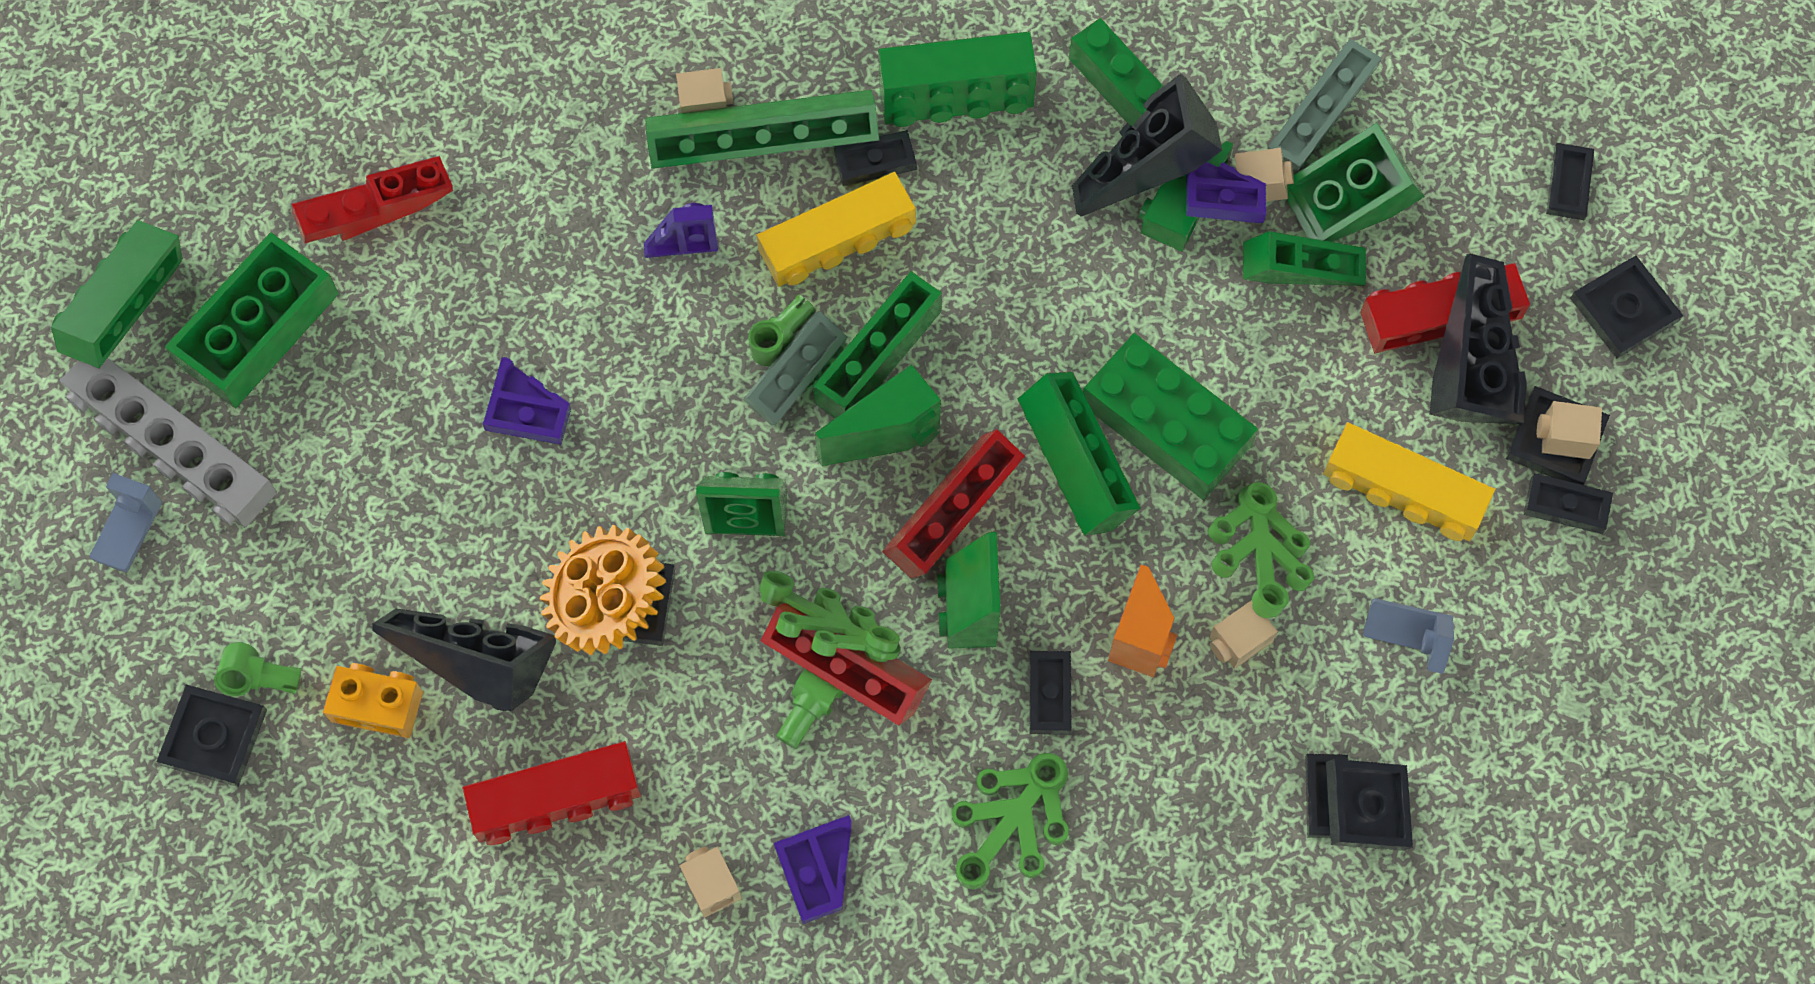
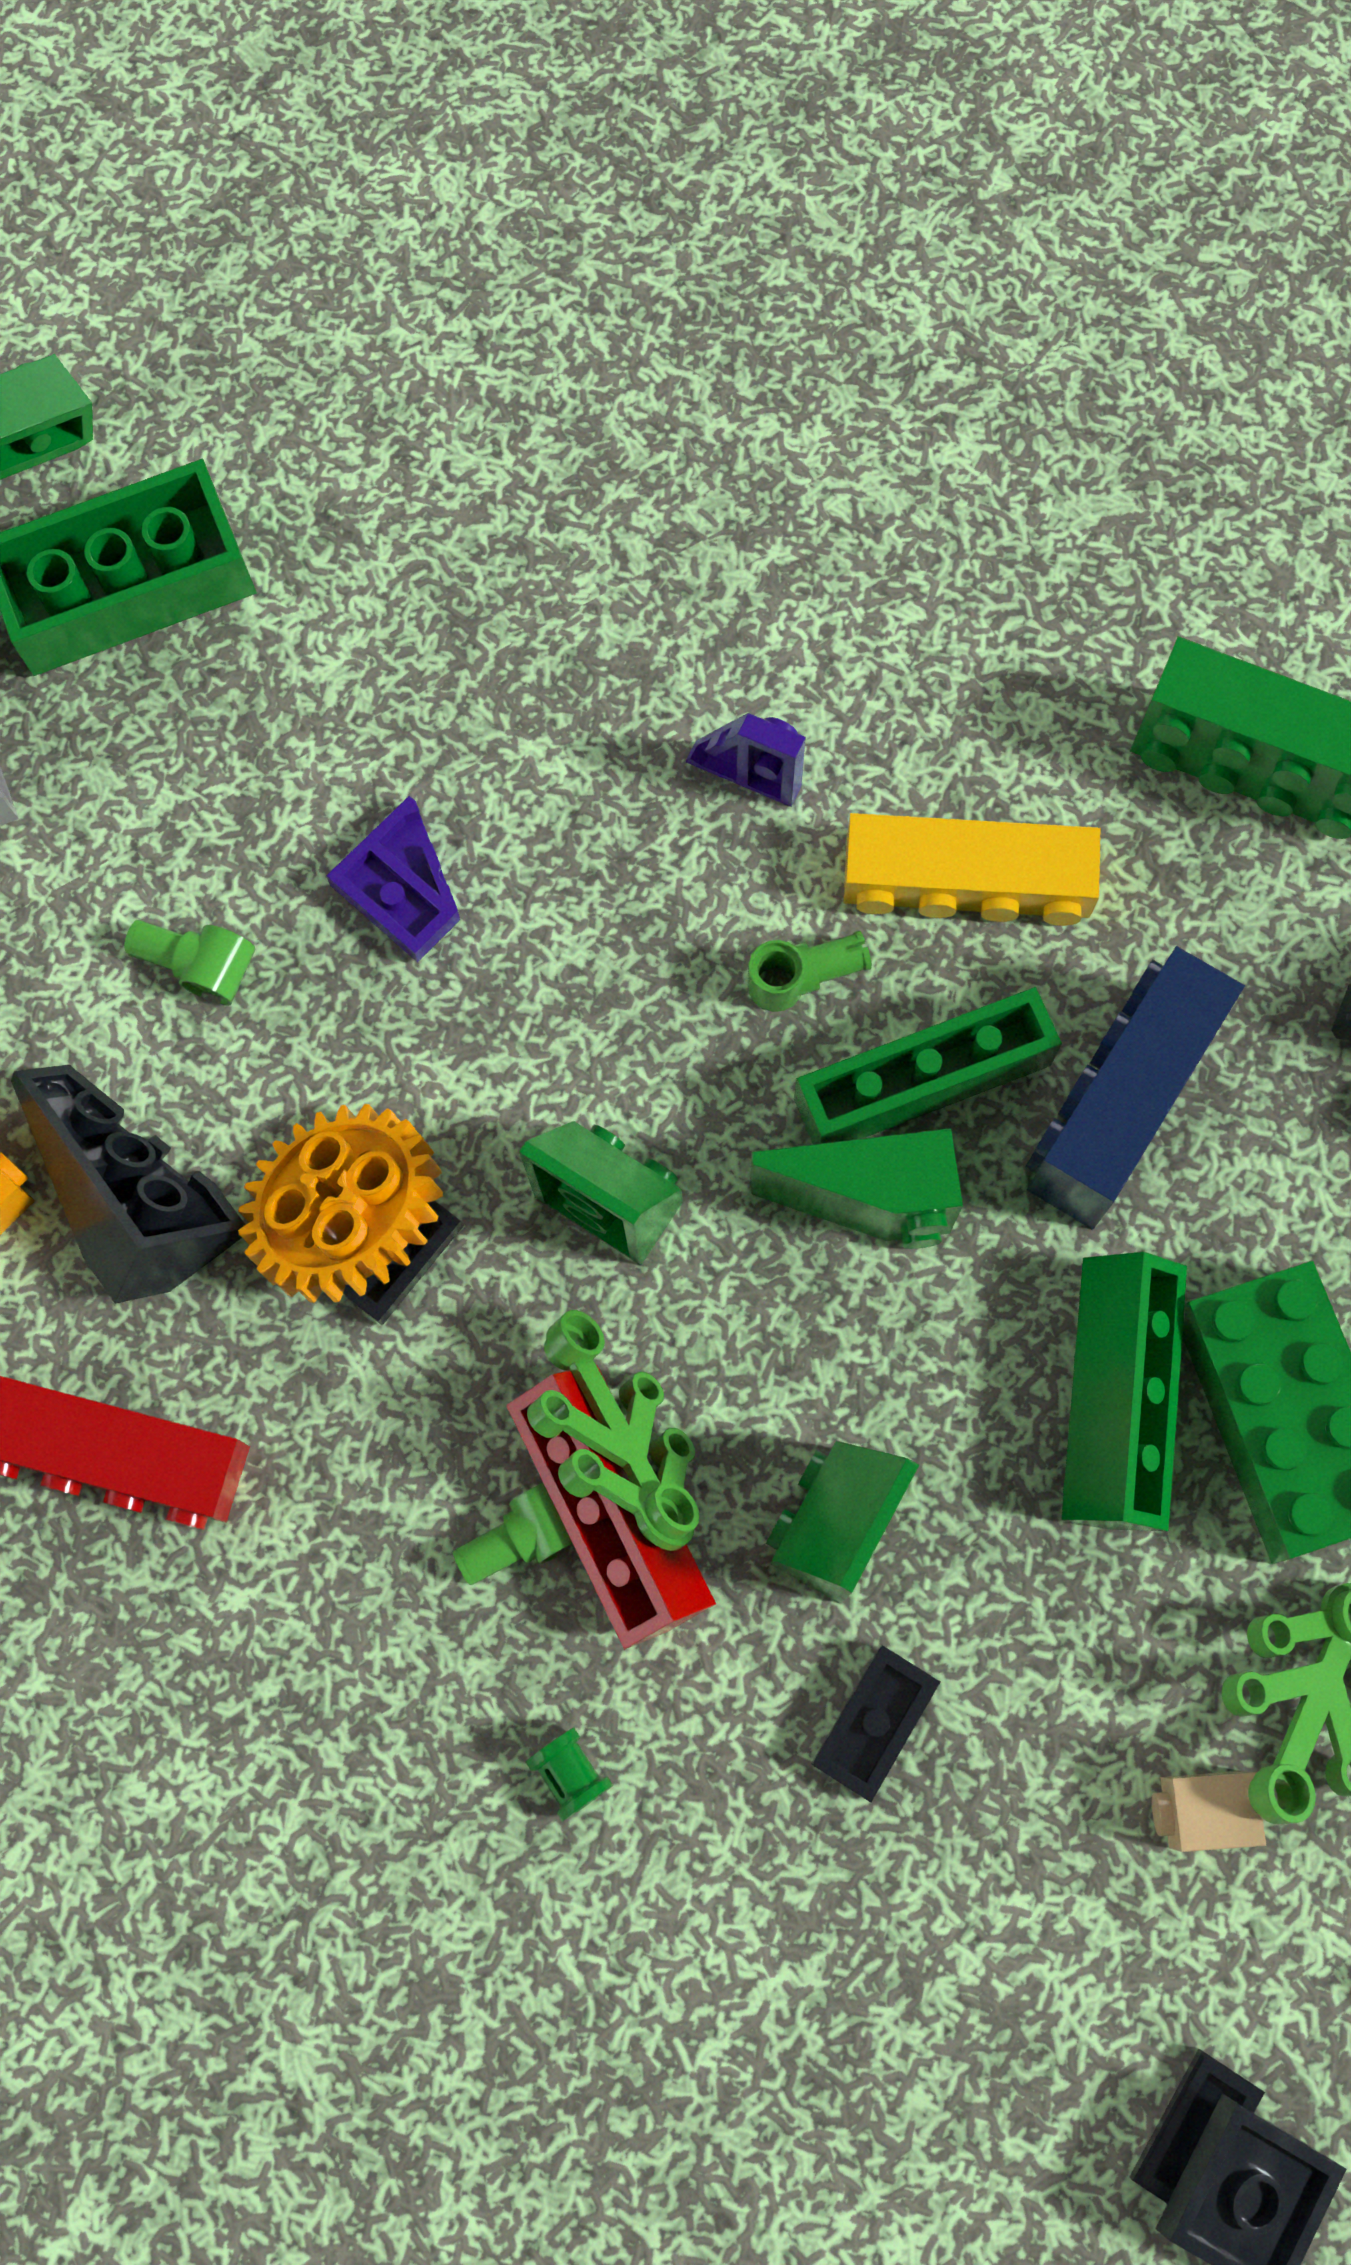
camera: 35 degrees right, 5 degrees up
(381, 200) = (380, 495): red slope -> none
(442, 509) = (202, 962): none -> bright green pin
(703, 90) = (897, 576): tan brick -> none
(710, 880) = (236, 1707): tan brick -> none
(761, 129) = (949, 666): green brick -> none
(795, 368) = (795, 1033): sand green plate -> none
(817, 867) = (393, 1780): dark purple wing -> none
(875, 158) = (1086, 792): black plate -> none
(907, 810) = (568, 1774): none -> green bush
(953, 504) = (899, 1362): red brick -> none
(989, 296) = (1139, 1078): none -> dark blue brick
(1015, 815) = (720, 1875): bright green plant -> none
(1145, 627) = (1068, 1717): orange slope -> none

